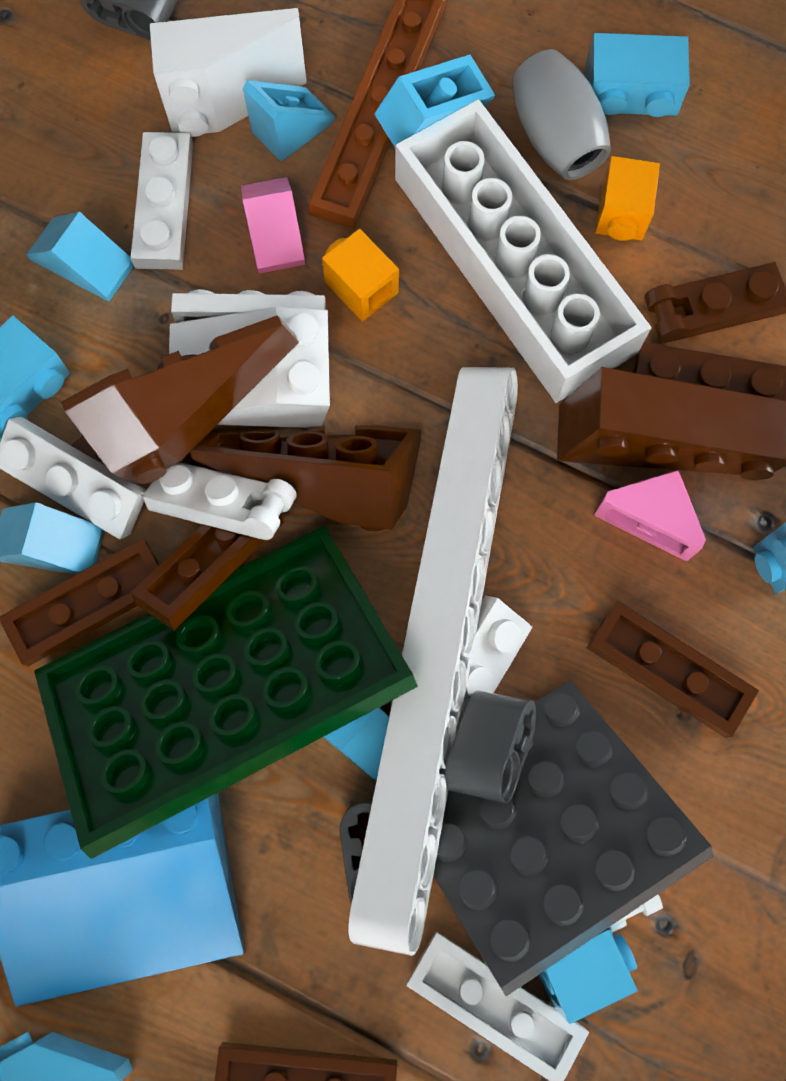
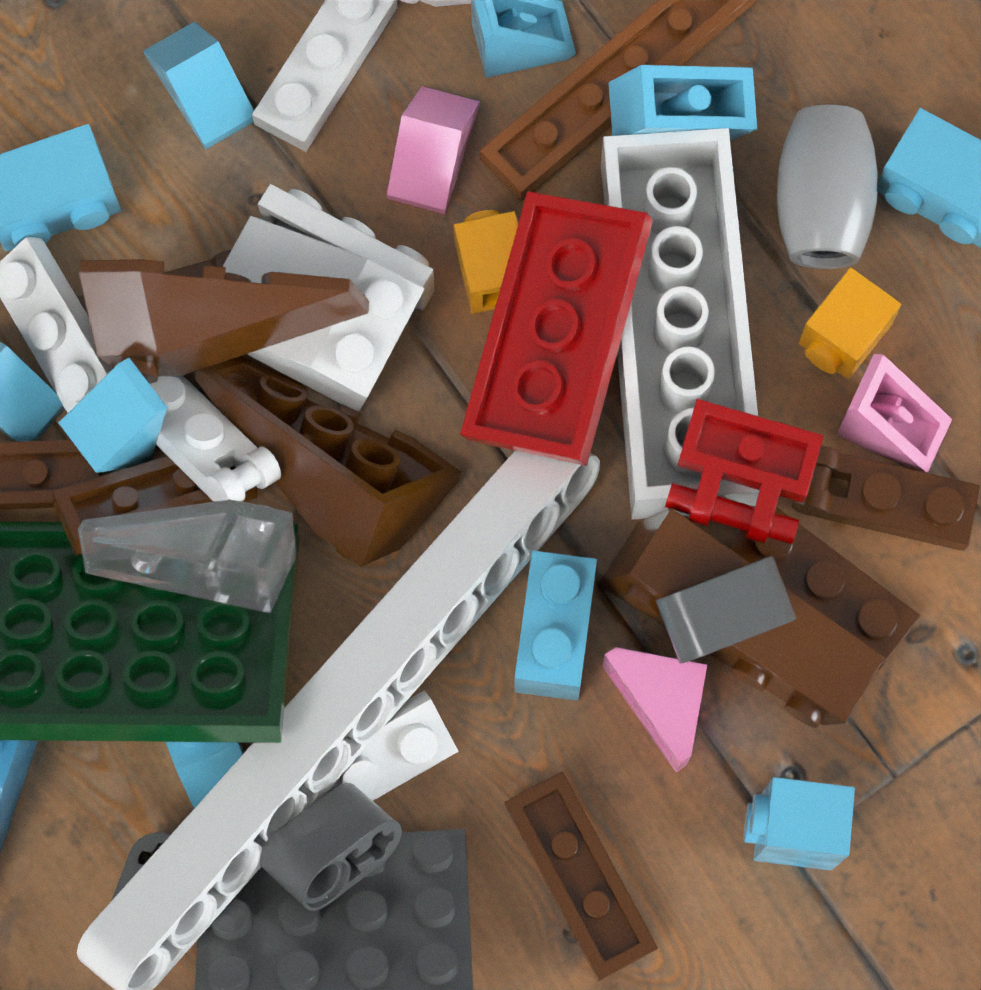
camera: 30 degrees right, 0 degrees up
(152, 512) = (117, 420): none -> medium azure slope
(268, 577) = (201, 550): none -> clear slope
(440, 287) = (557, 327): none -> red plate
(552, 500) = (555, 625): none -> medium azure brick
(633, 302) = (748, 453): none -> red plate
(685, 417) = (726, 609): none -> dark grey beam
(688, 244) = (894, 417): none -> bright pink slope

